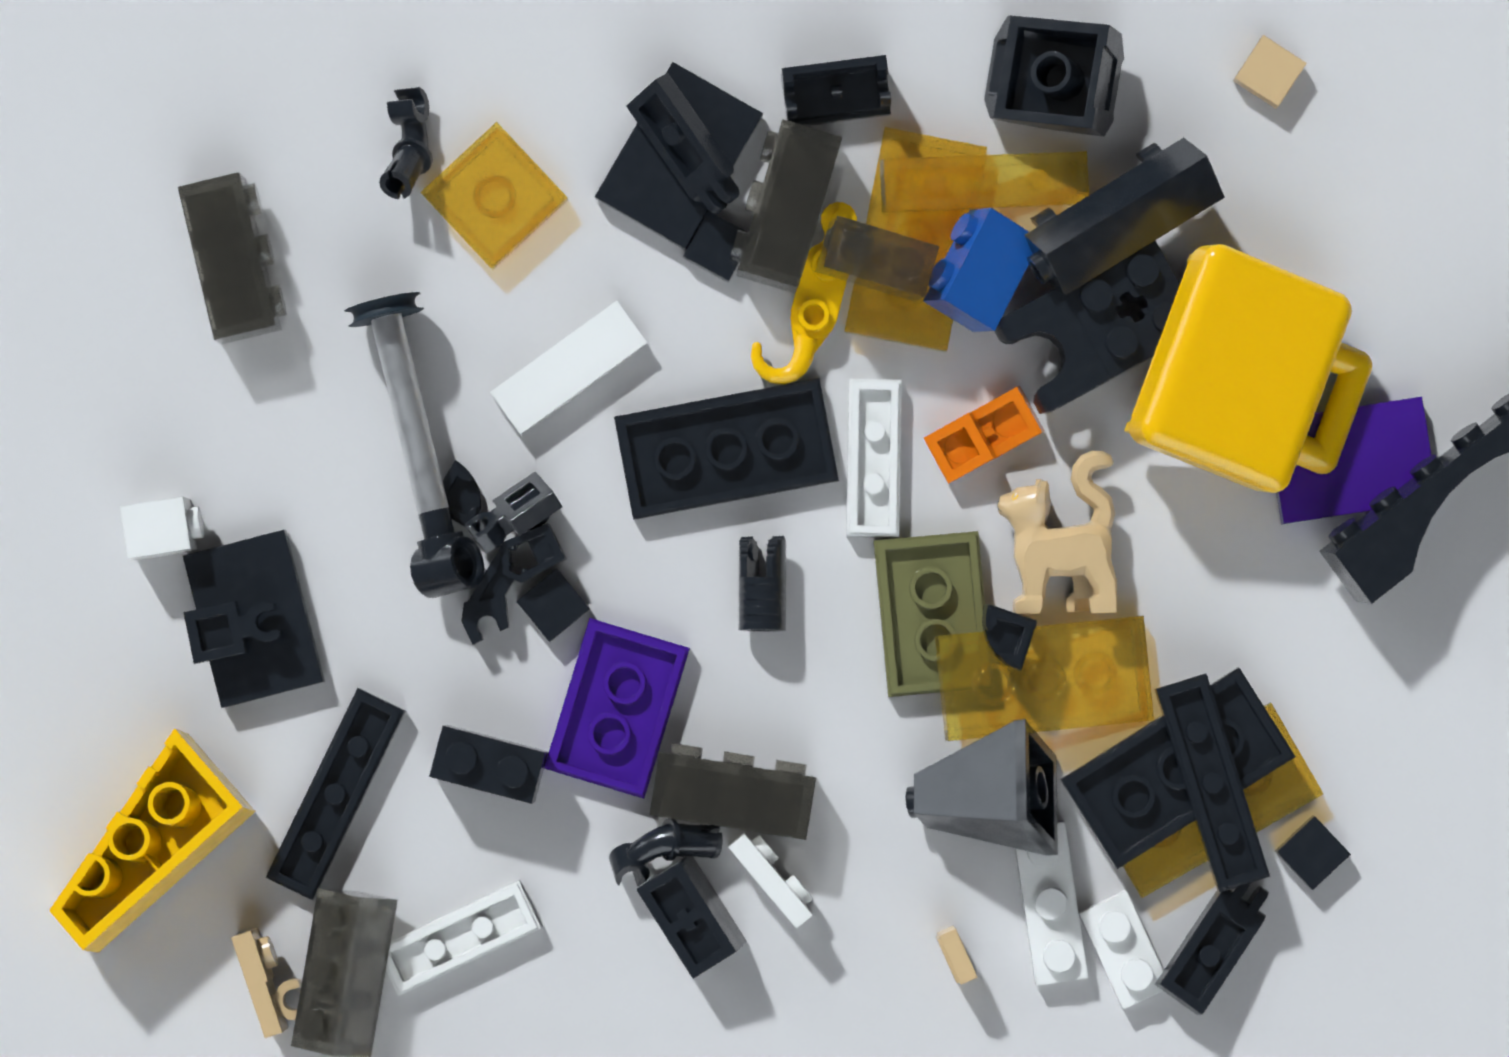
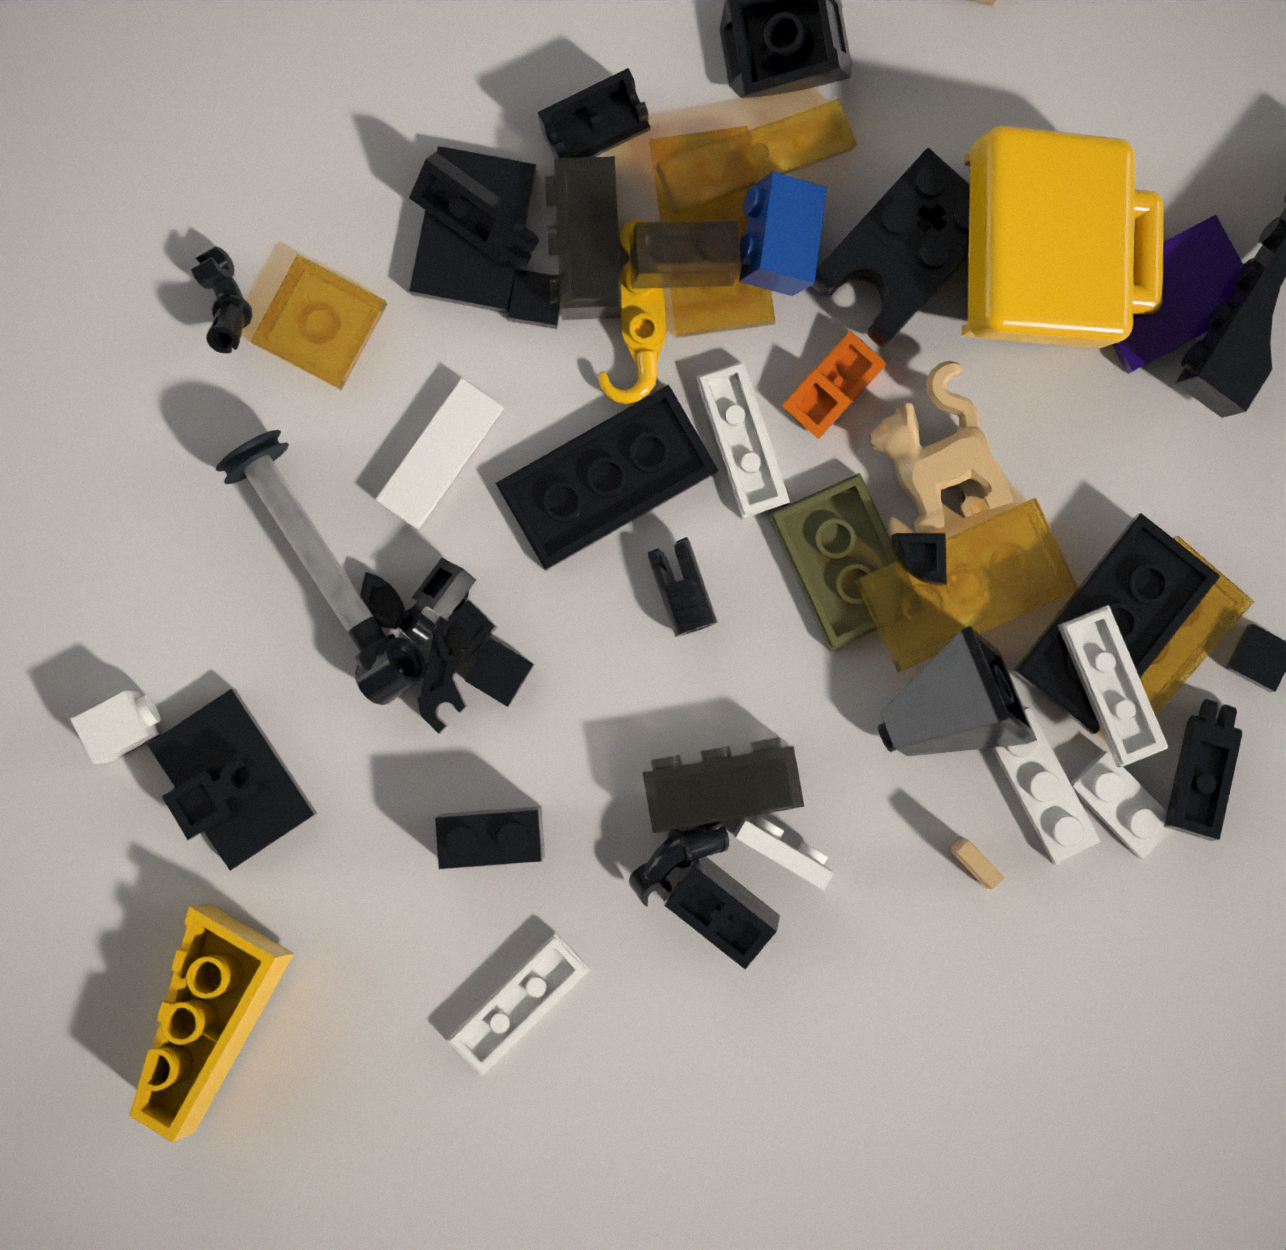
camera: 20 degrees left, 0 degrees up
(232, 257) = (98, 458): clear smoke brick -> none
(256, 961) = (340, 1091): tan plate -> none
(335, 794) = (361, 912): black tile -> none
(344, 973) = (423, 1075): clear smoke brick -> none
(617, 708) = (589, 746): dark purple tile -> none
(1122, 215) = (894, 138): black brick -> none
(1149, 827) = (1113, 686): none -> white tile
(1212, 782) = (1155, 625): black tile -> none

